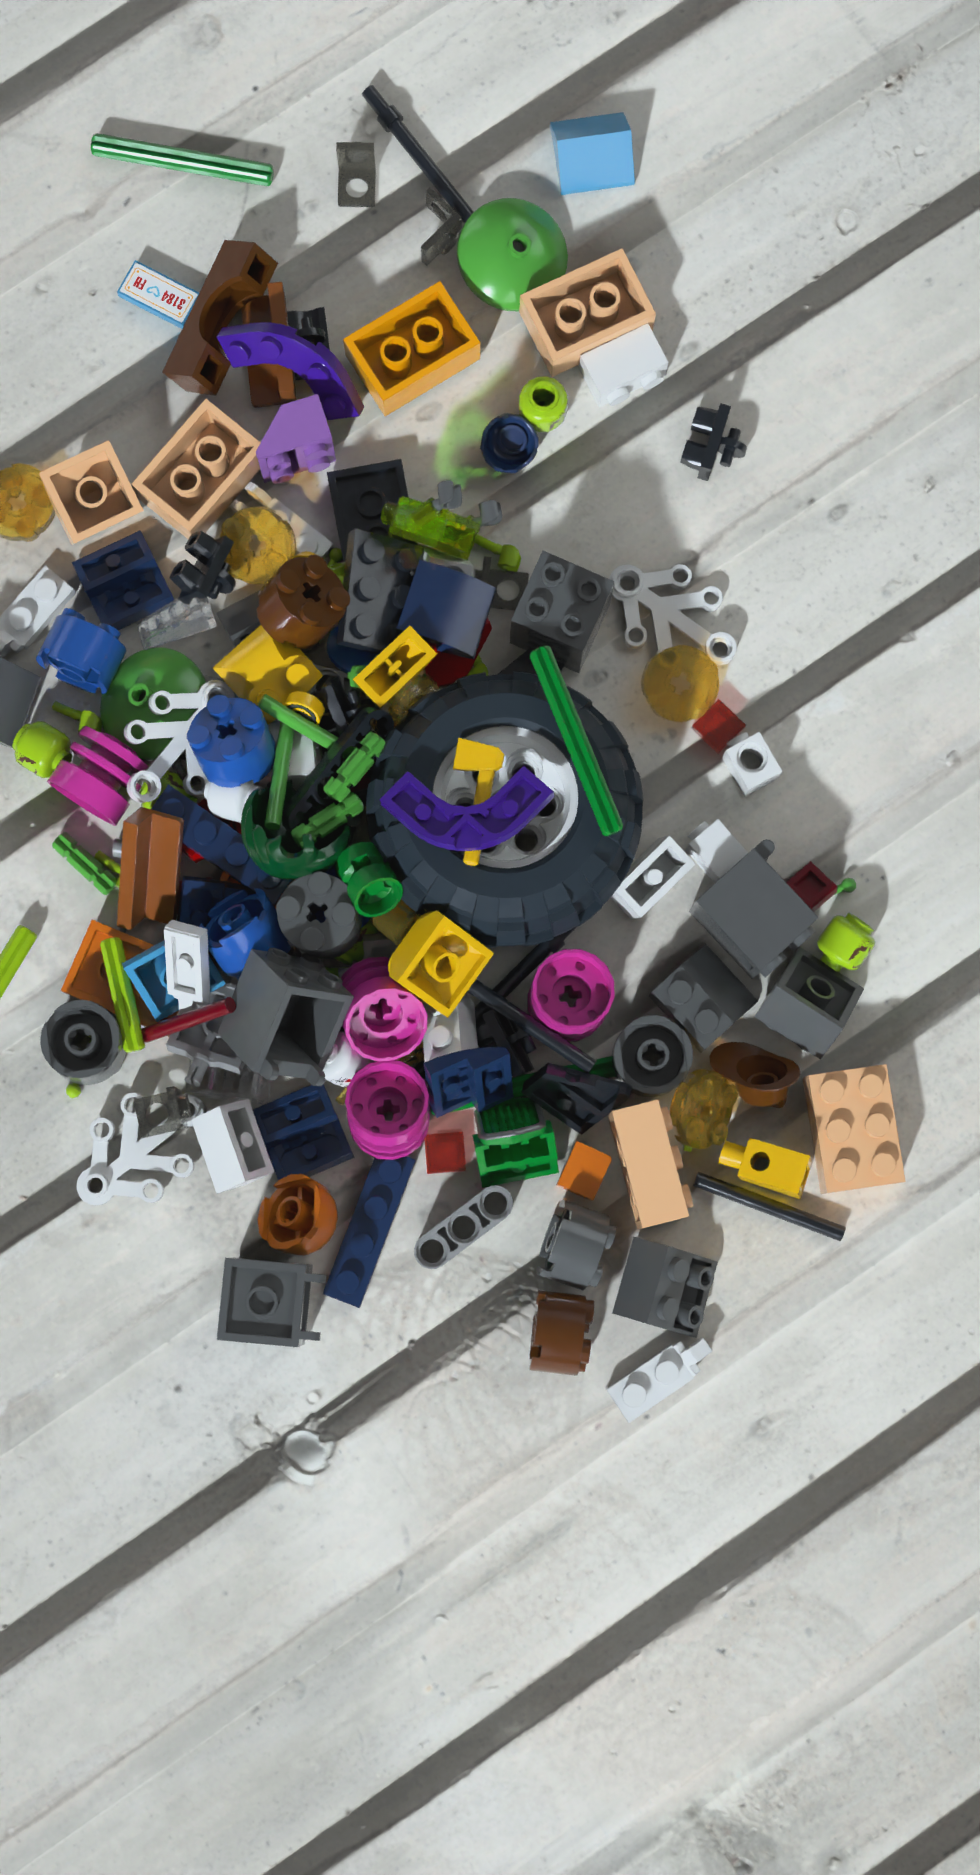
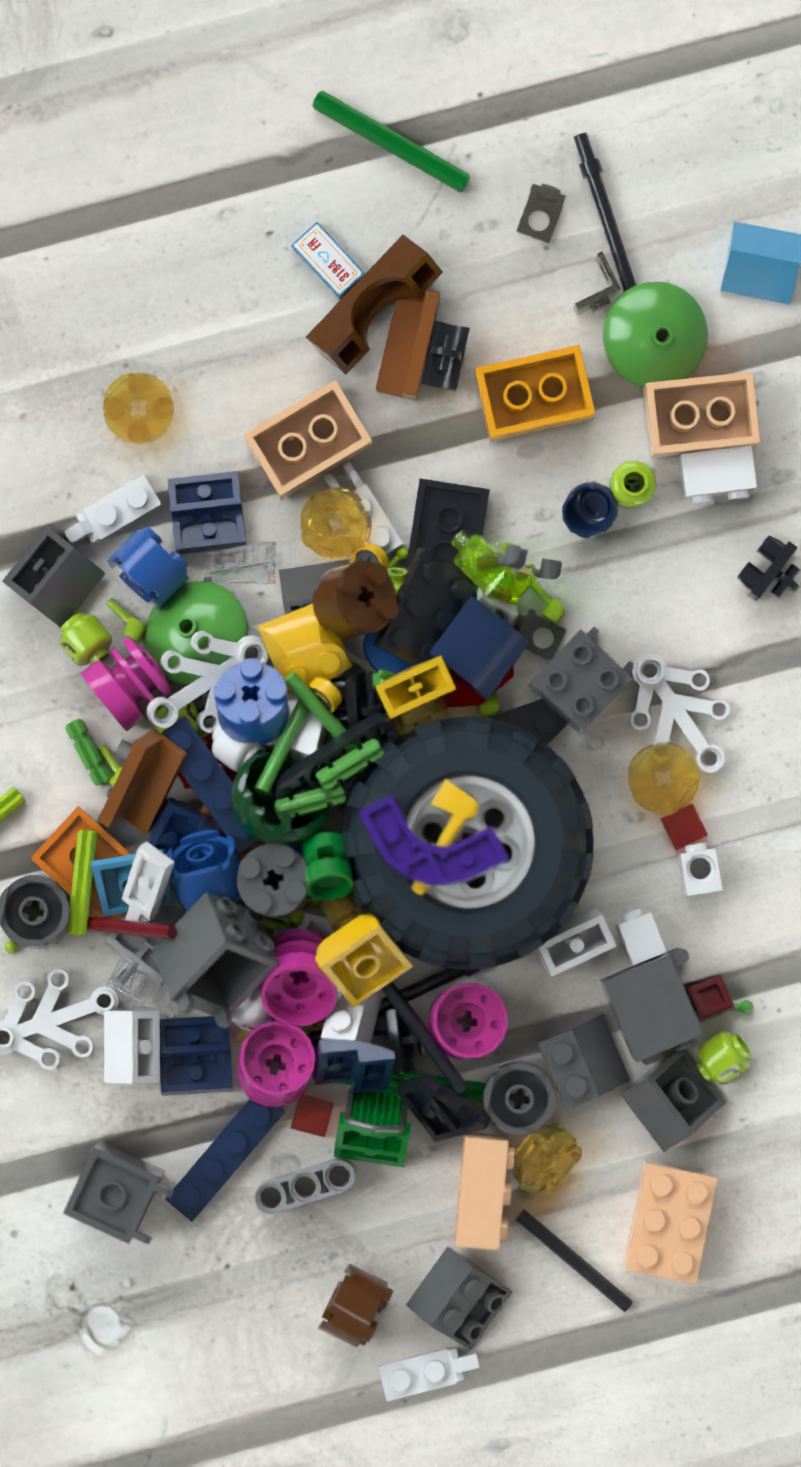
camera: 20 degrees right, 5 degrees up
(90, 492) = (205, 429): light nougat slope -> none
(178, 1109) = (96, 997): clear smoke bracket -> none
(210, 572) = (285, 533): black hips -> none
(296, 441) = (403, 442): medium lavender slope -> none
(298, 1216) = (166, 1127): orange cylinder -> none
(316, 364) = (414, 353): dark purple plate -> none
(576, 741) = (545, 818): green axle -> none
(576, 1246) = (394, 1237): dark grey brick -> none
(584, 1171) = (425, 1175): orange panel -> none
(757, 1073) = (604, 1142): reddish brown piece -> none
(786, 1170) = (598, 1237): yellow torso -> none

